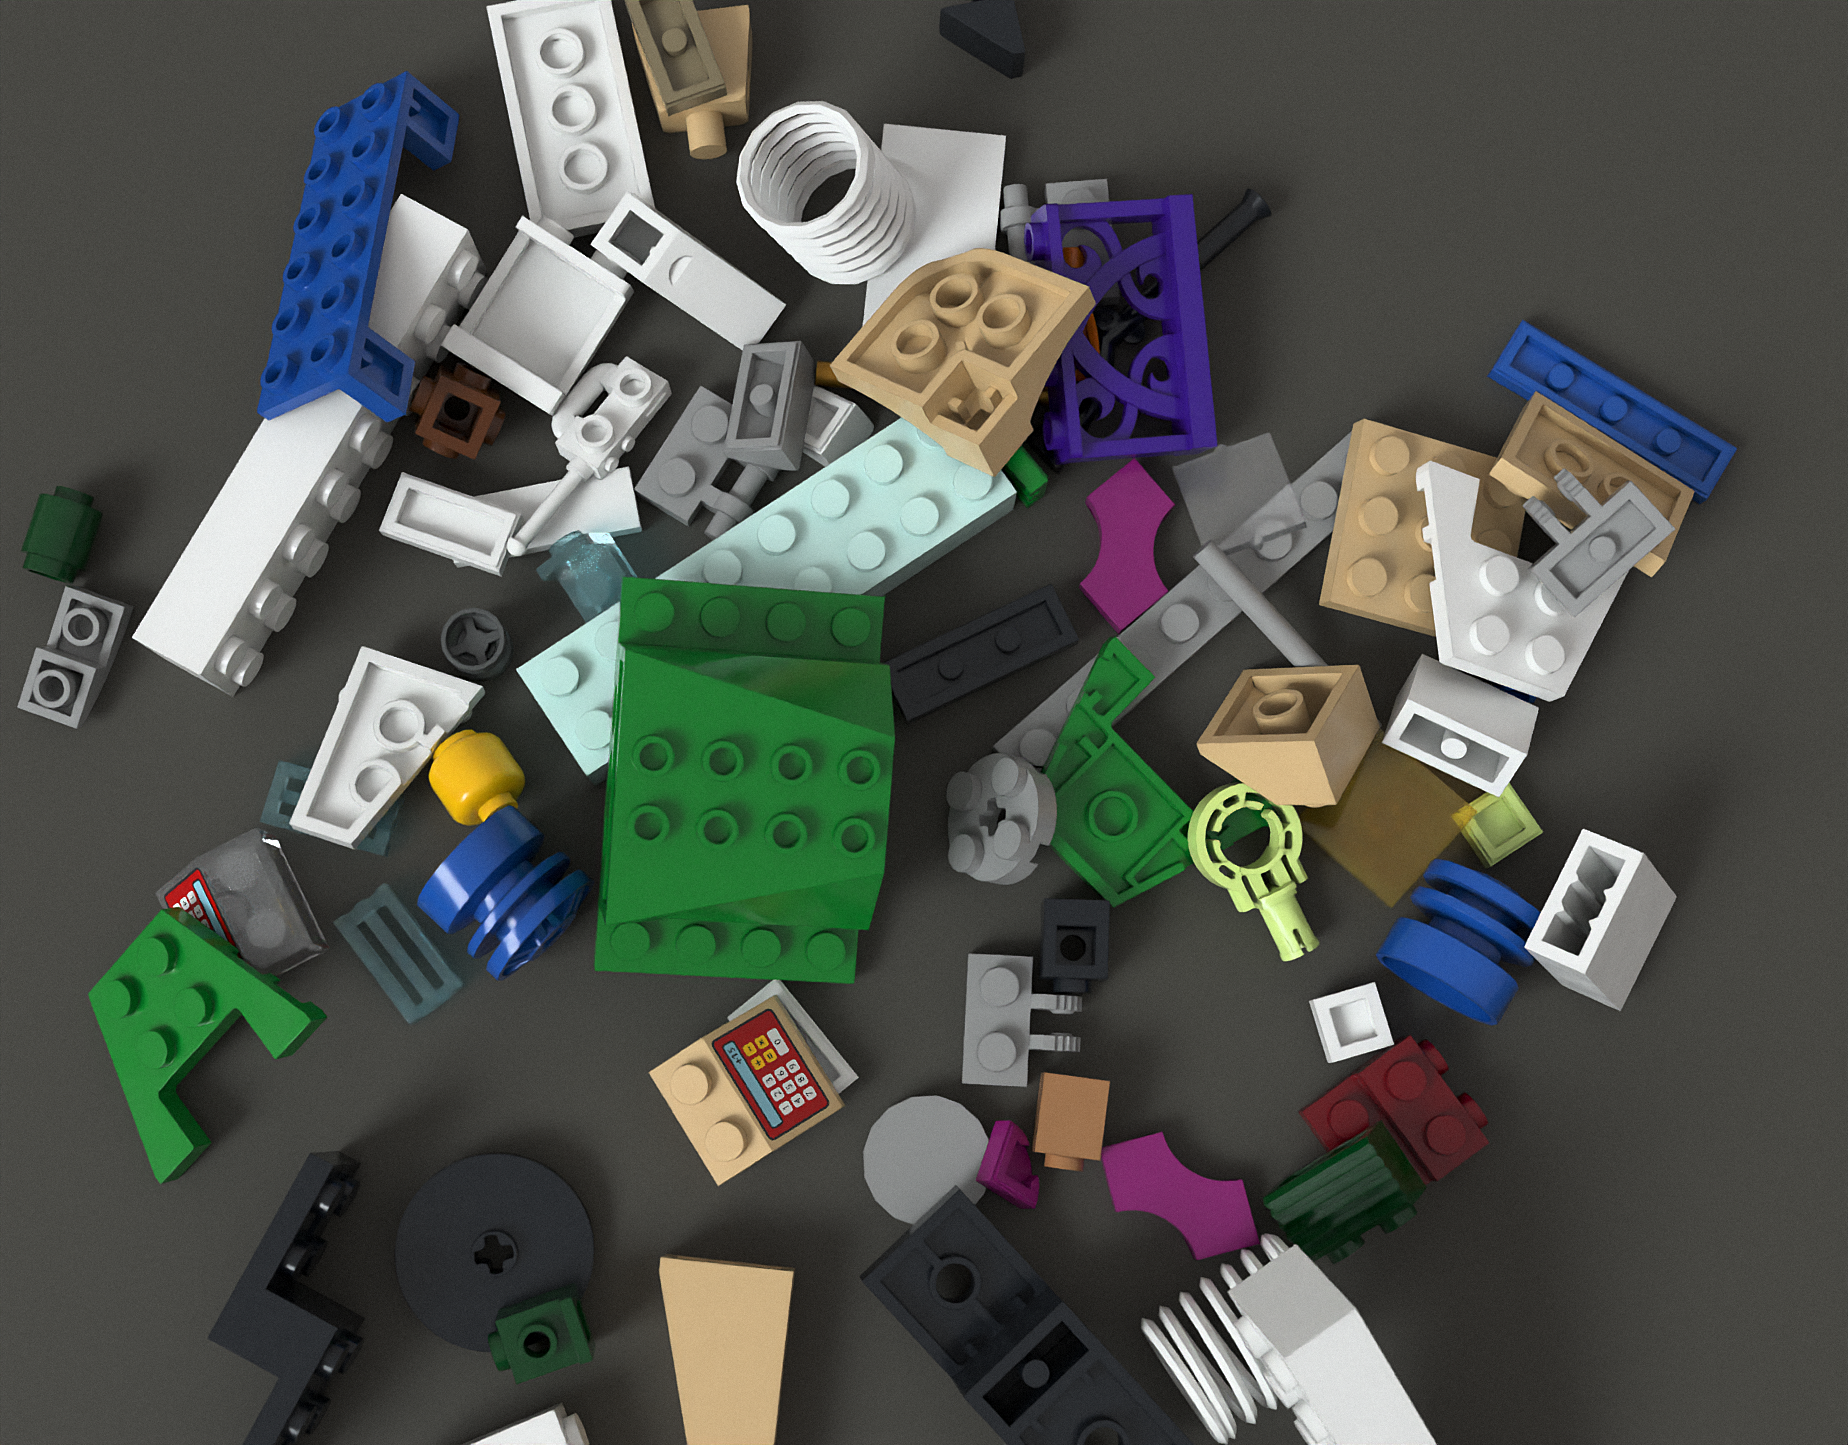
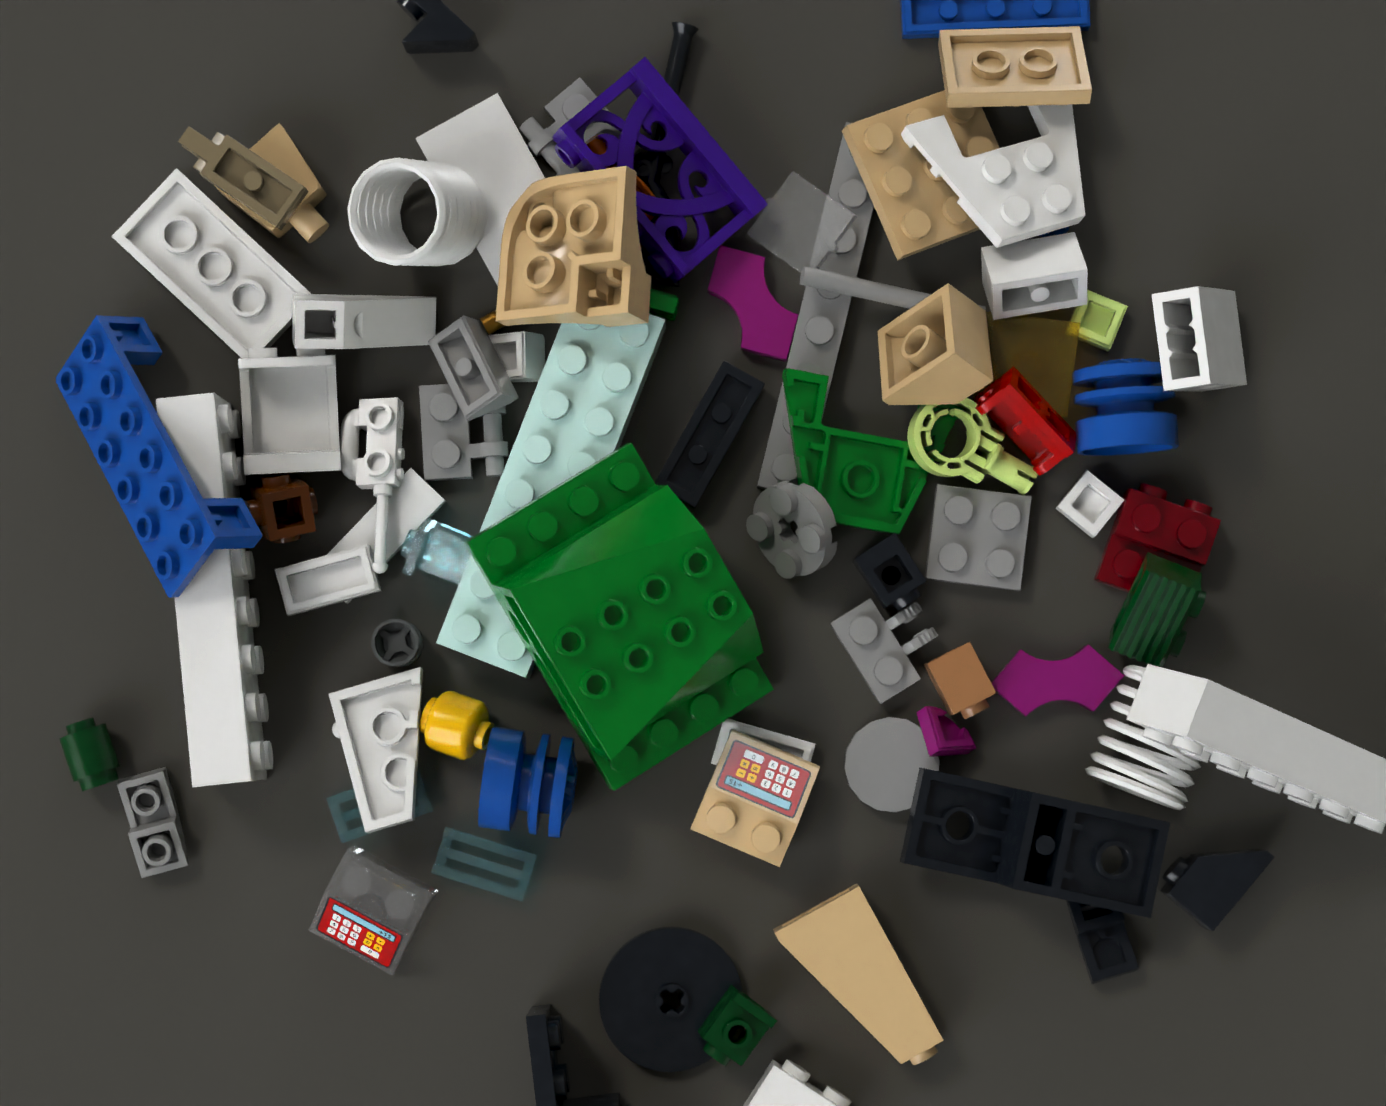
camera: 25 degrees left, 5 degrees up
(168, 1008) = (370, 995): green wing -> none
(1199, 974) = (978, 537): none -> light grey plate
(1344, 879) = (1027, 420): none -> red hinge
(1597, 548) = (1045, 111): light grey hinge -> none

